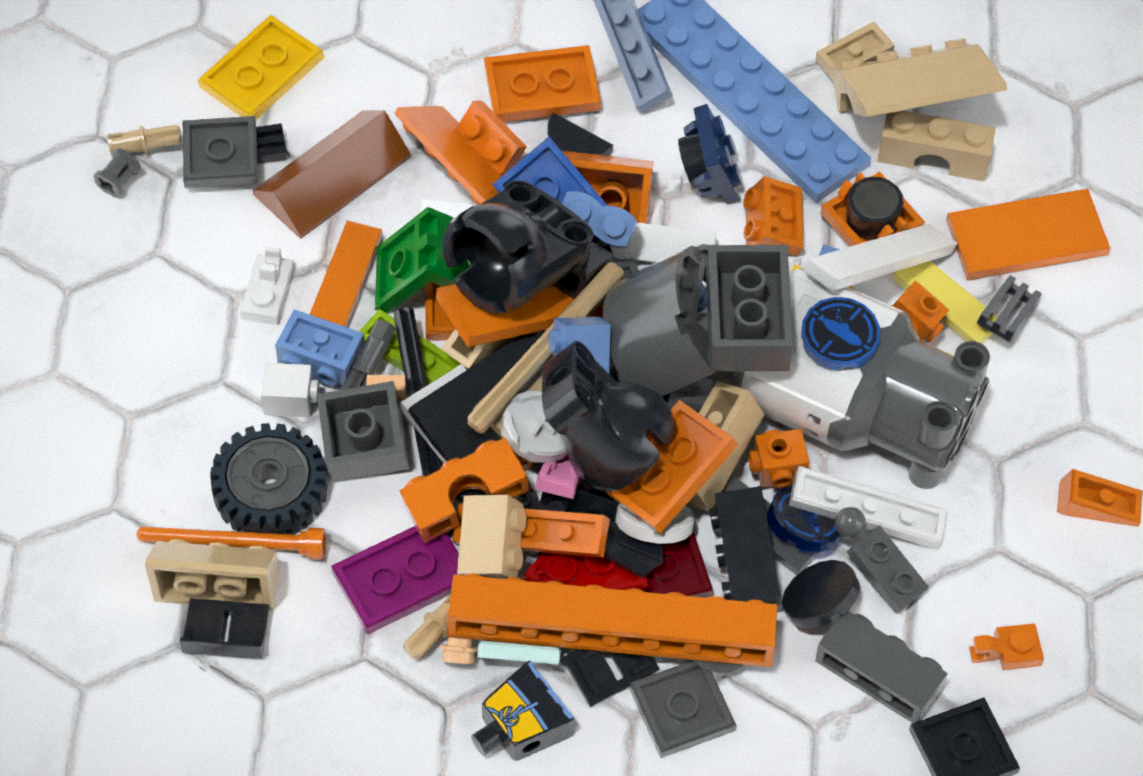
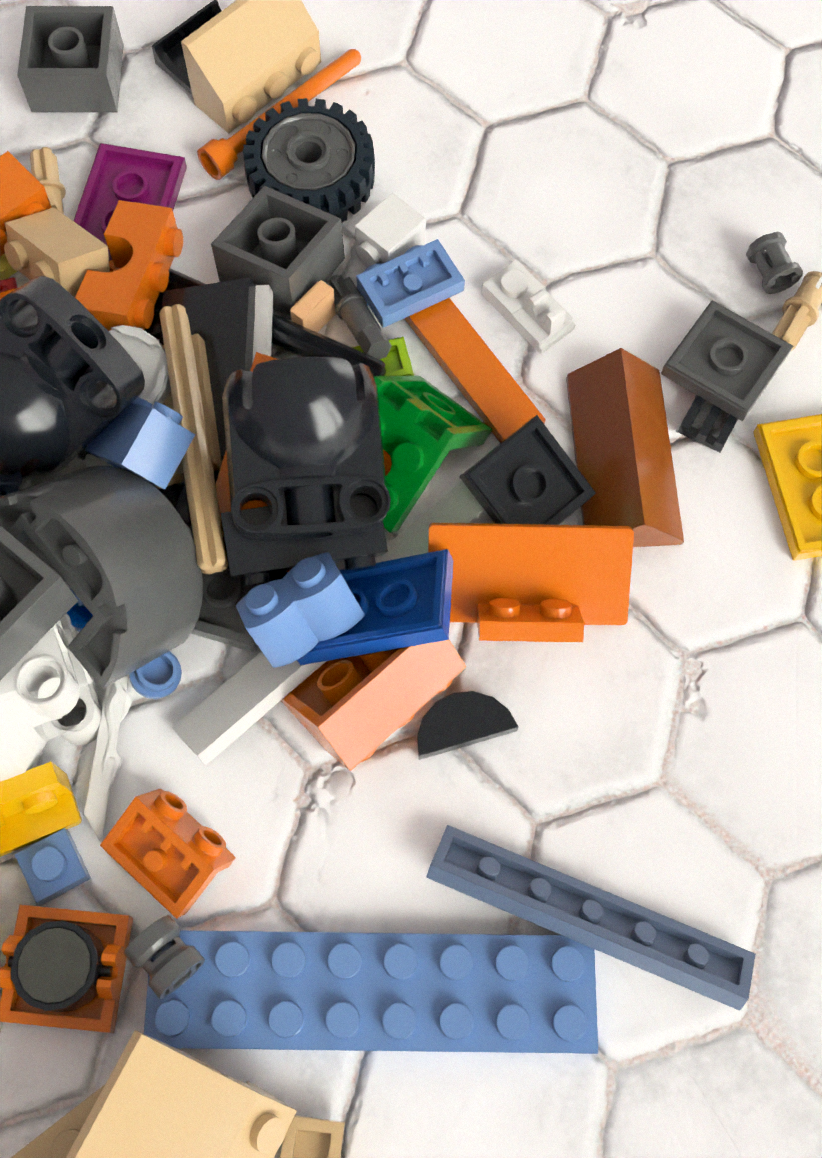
camera: 130 degrees right, 10 degrees up
(319, 688) = (71, 59): none -> dark grey brick
(406, 186) = (528, 479): none -> black tile
(542, 83) = (568, 748): orange plate -> none
(708, 156) = (294, 832): dark blue piece -> none
(824, 160) = (164, 956): none -> dark grey wheel

